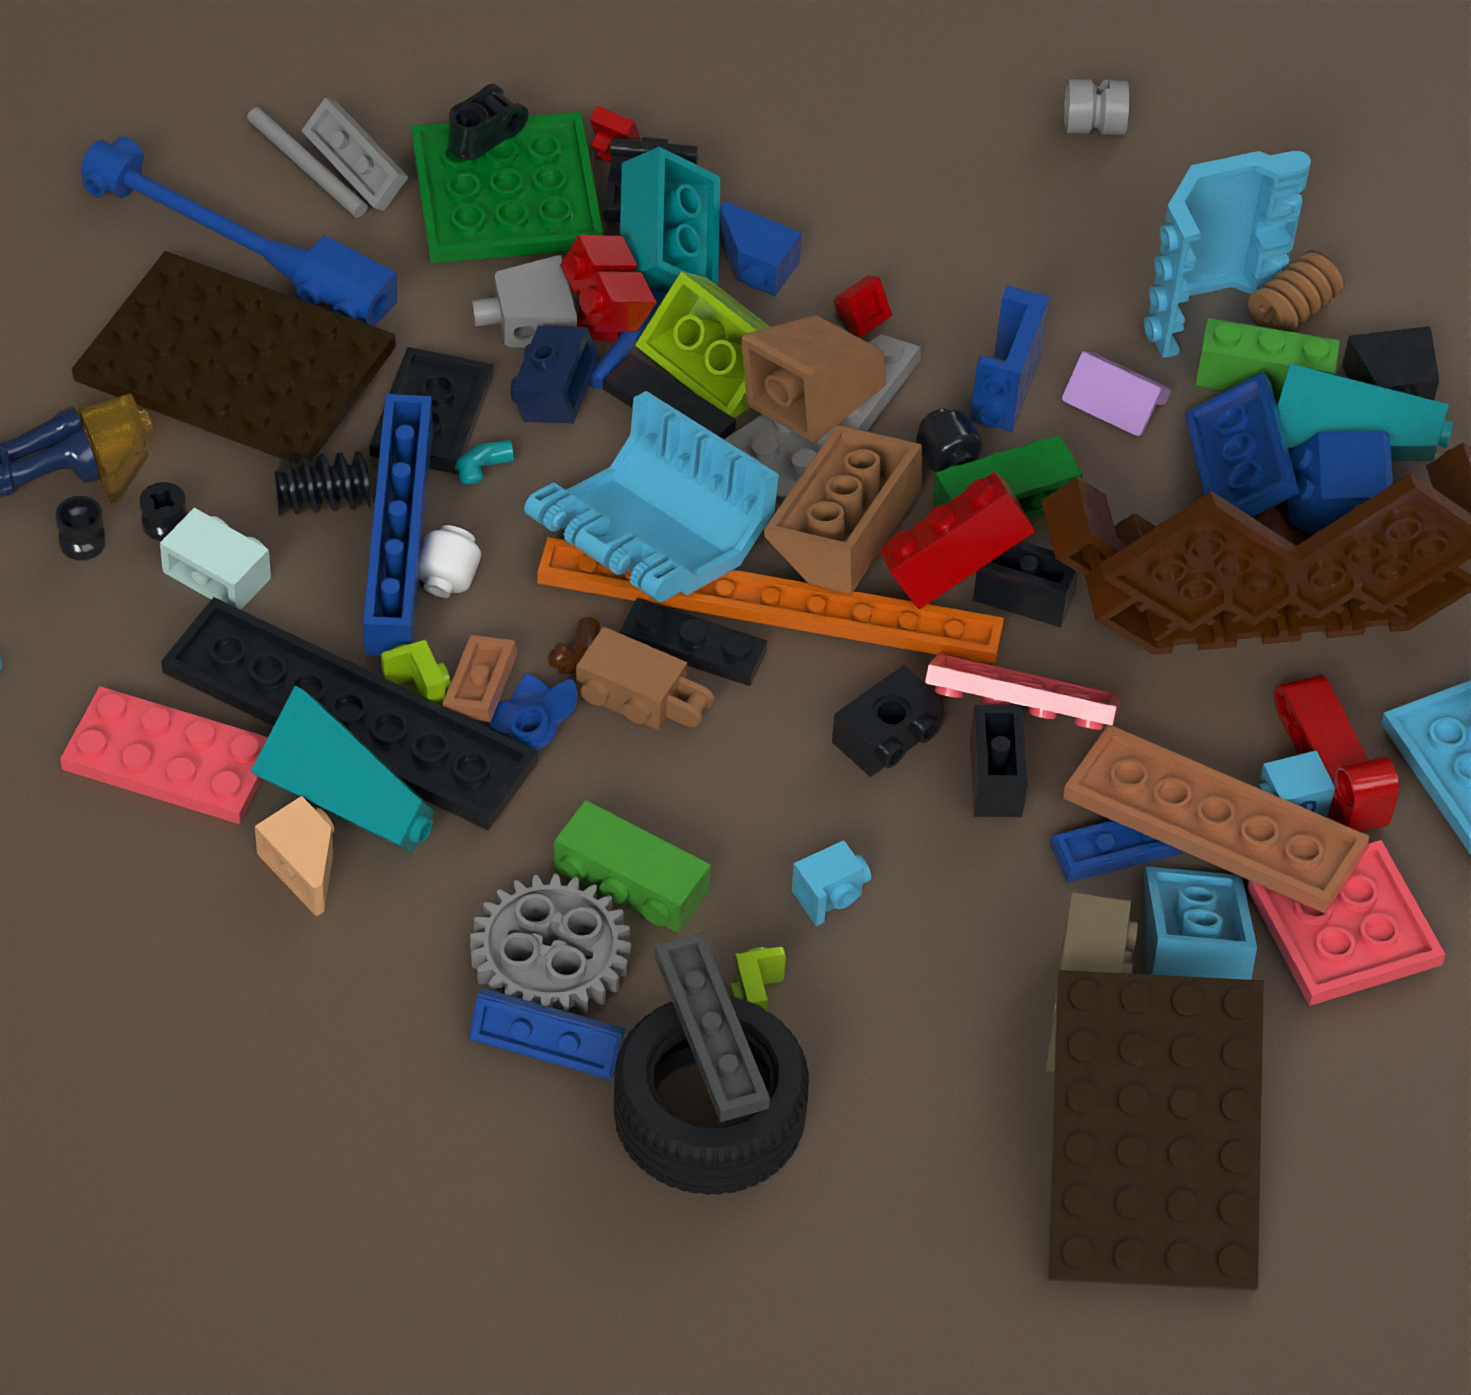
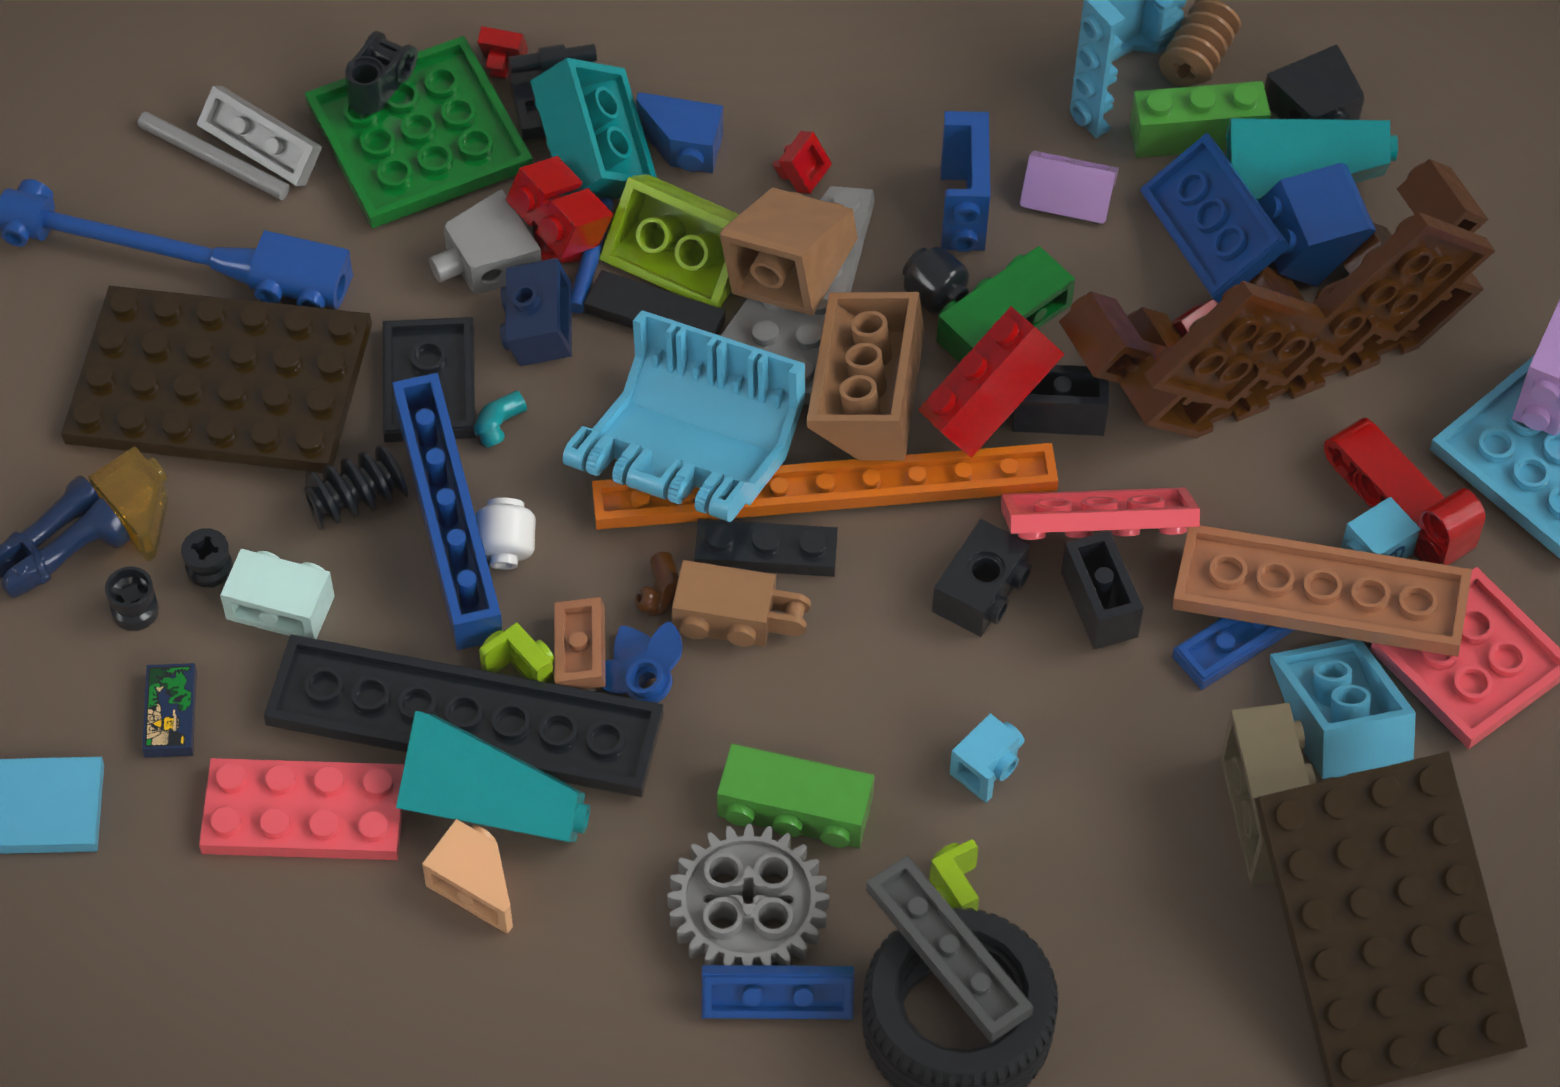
camera: 15 degrees left, 5 degrees up
(79, 635) = (169, 710): none -> tile

